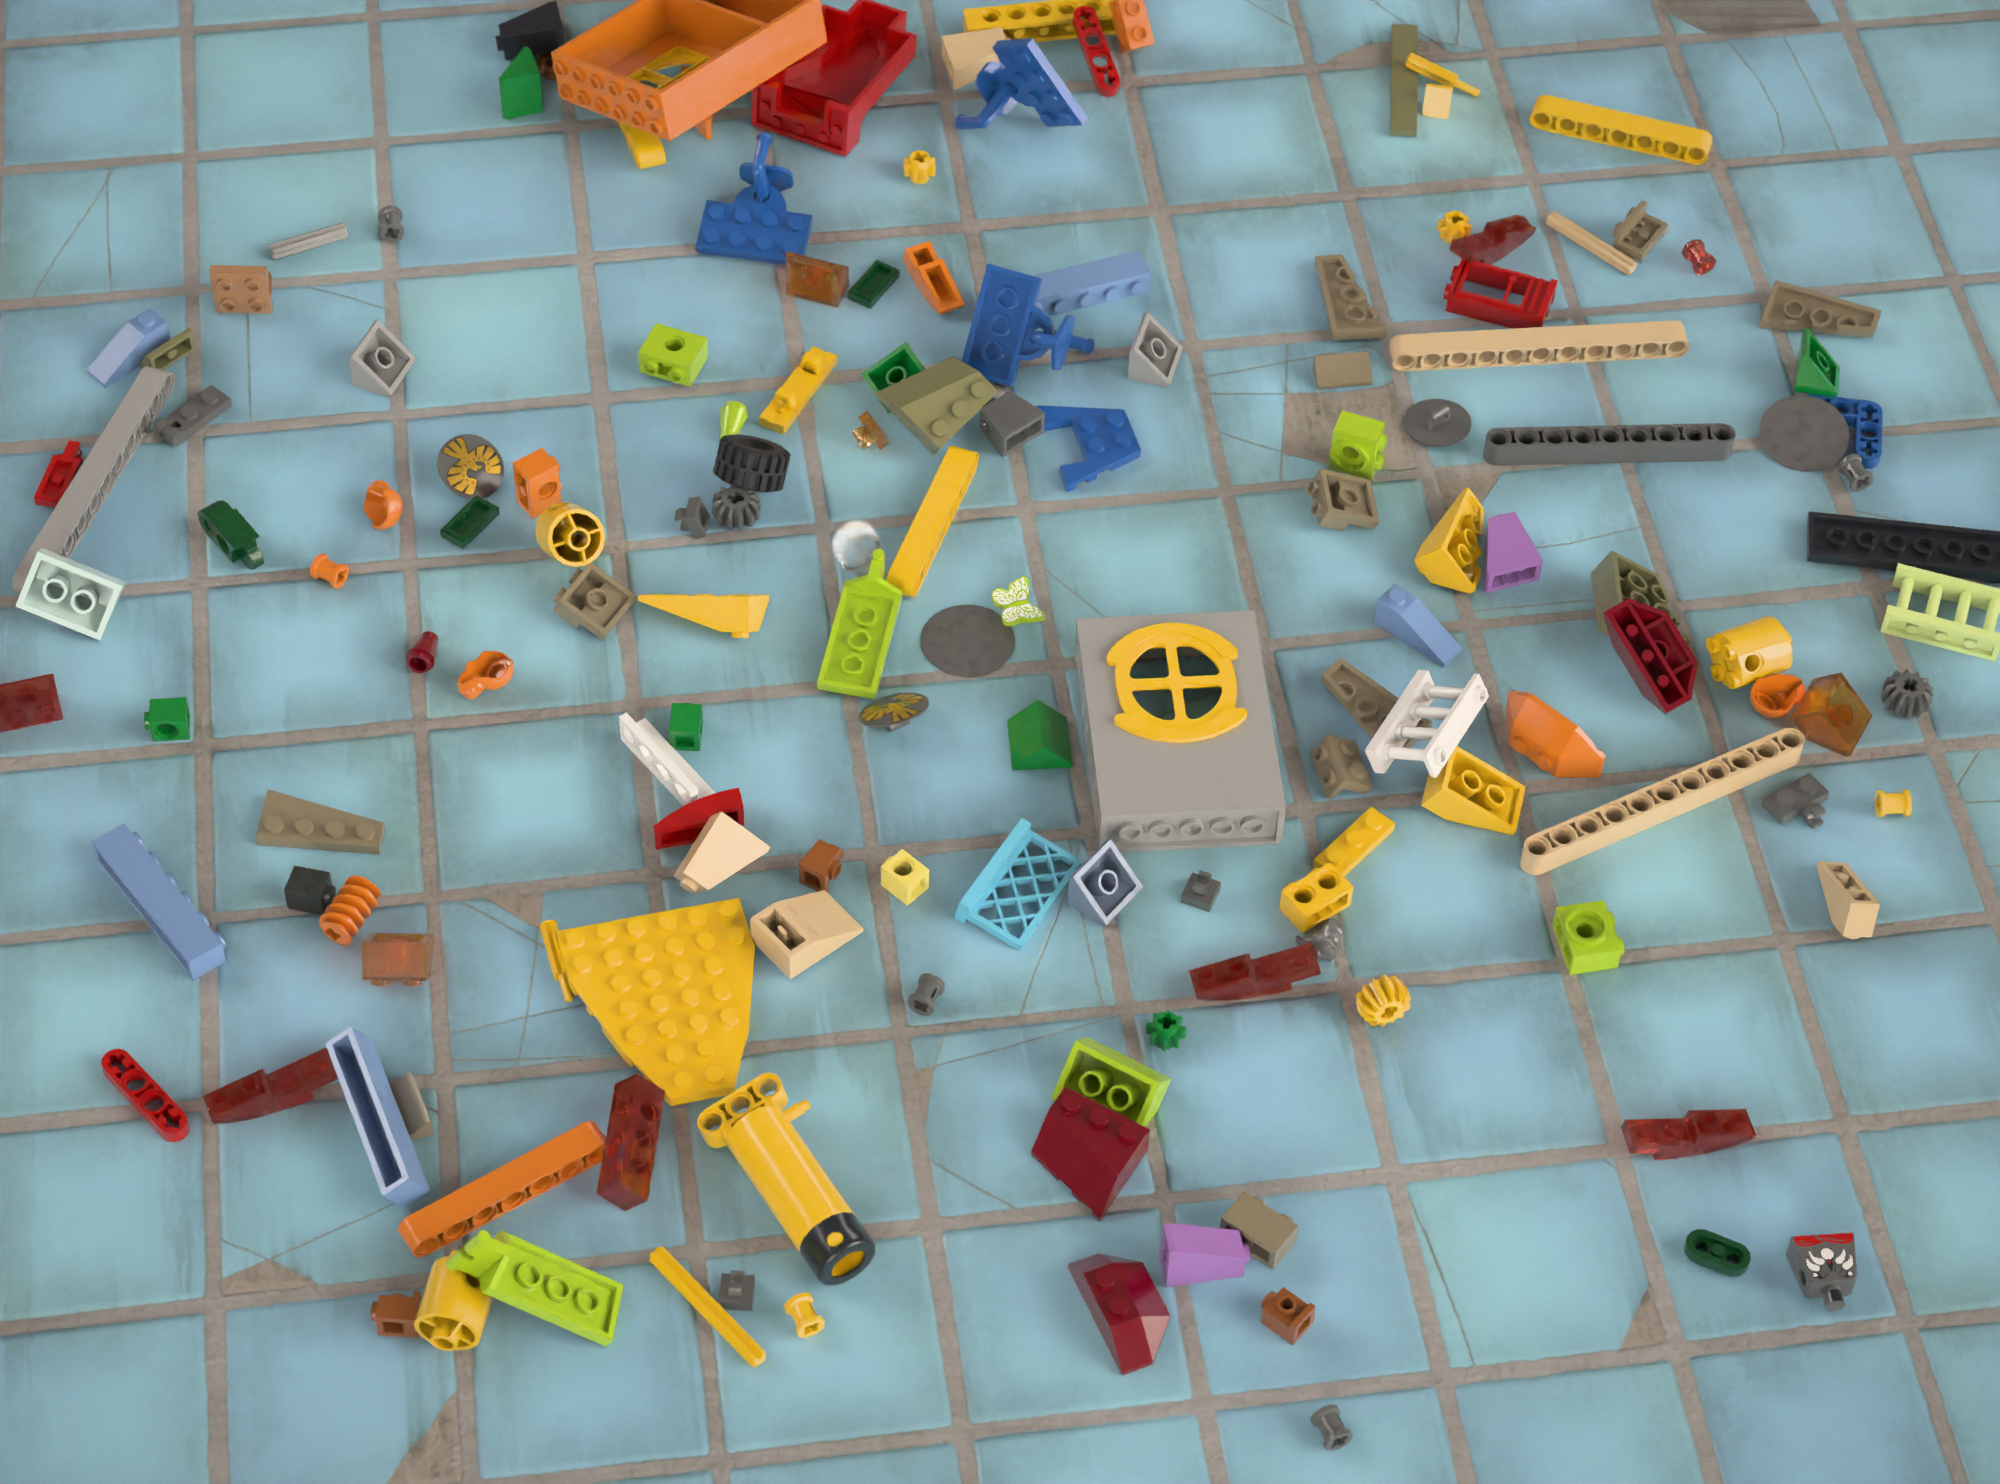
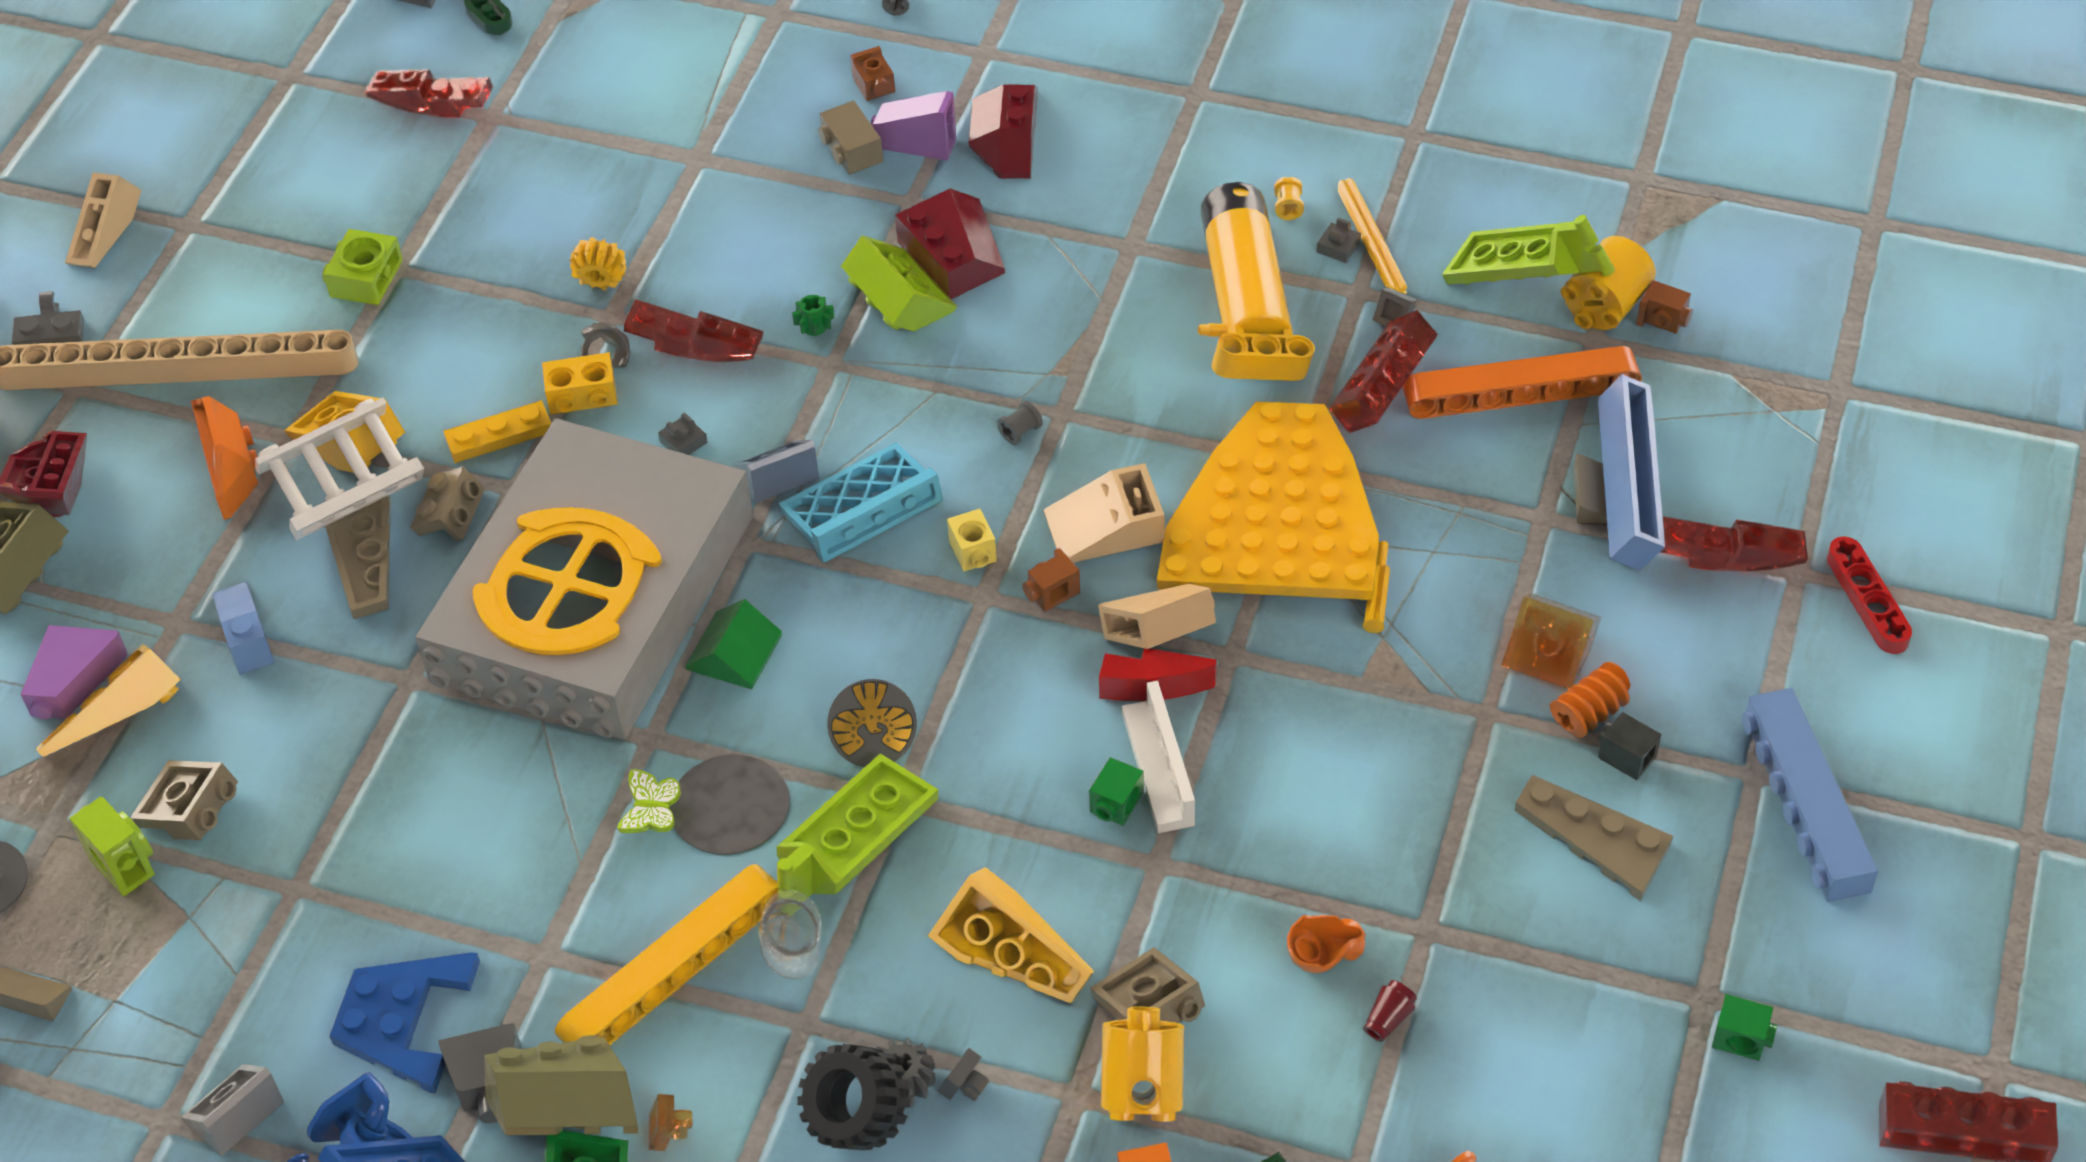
camera: 150 degrees left, 0 degrees up
(650, 1223) = (1392, 305): none -> dark grey tile

